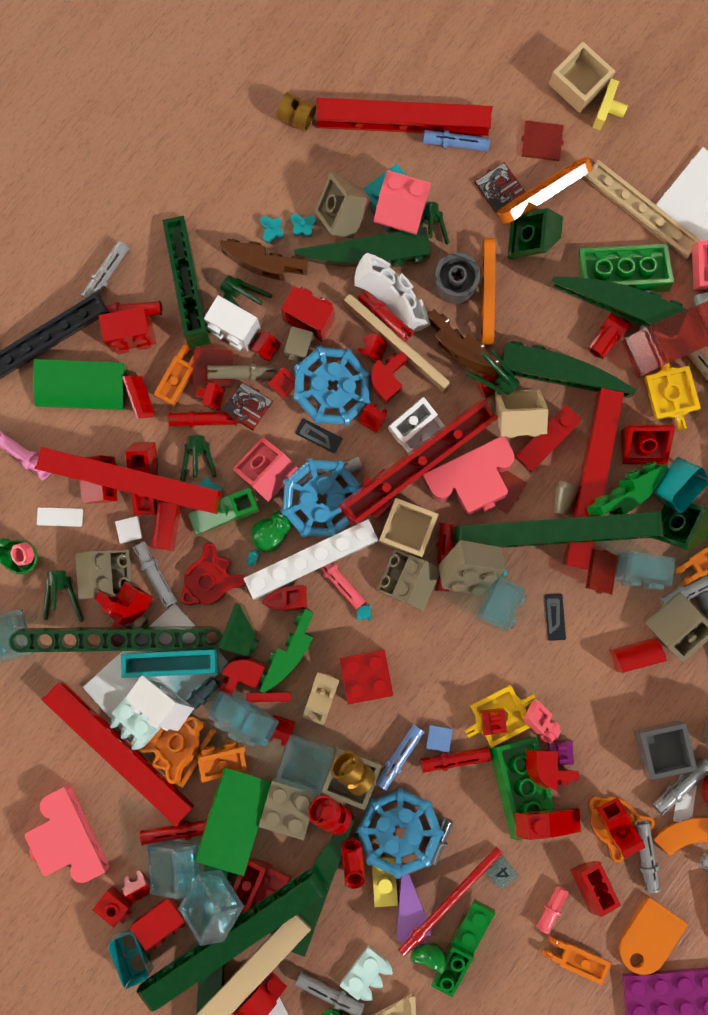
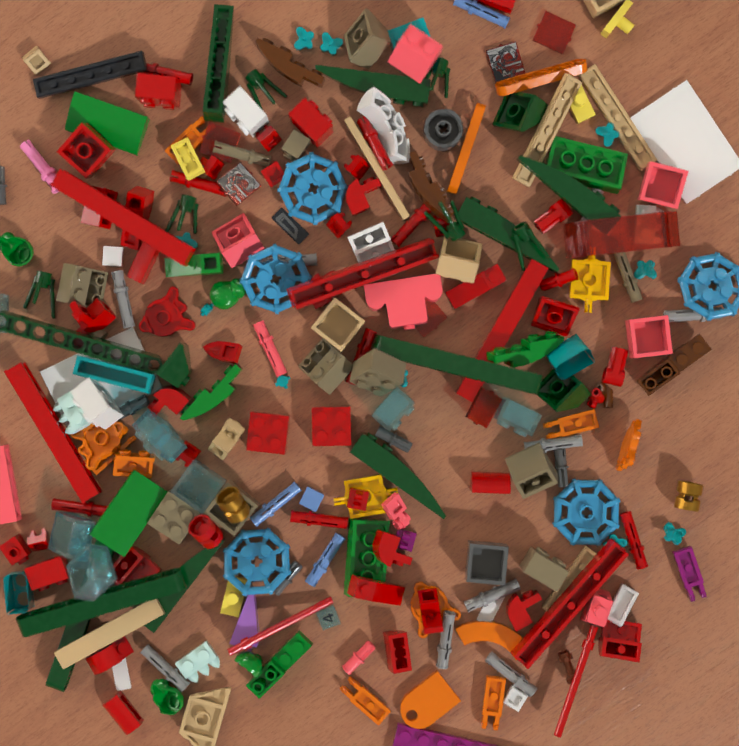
camera: 20 degrees right, 5 degrees up
(22, 553) = (21, 250): coral tile -> none
(59, 517) = (59, 228): white sticker -> none
(65, 420) = (86, 150): none -> red brick
(120, 250) = (146, 39): light grey pin -> none
(139, 396) = (152, 148): red tile -> none
(182, 394) = (187, 158): none -> light yellow tile
(269, 696) = (185, 424): red tile -> none
(310, 559) = (252, 325): white arch -> none
(353, 863) = (213, 574): red piece -> none
(436, 646) = (331, 426): none -> red piece
(451, 398) = (410, 225): none -> red pin
(475, 811) = (321, 565): none -> medium blue pin
(511, 639) = (393, 439): none -> dark grey axle
(522, 674) = (392, 468): none -> dark green slope
(555, 617) = (435, 432): black sticker -> none
(564, 497) = (473, 338): dark tan cone -> none
(571, 239) = (548, 126): none -> tan tile
(585, 361) = (524, 233): none -> dark green plant
(593, 205) = (581, 107): none -> light yellow tile
(638, 228) = (608, 133): none -> teal piece
(639, 402) = (559, 279): none -> red axle

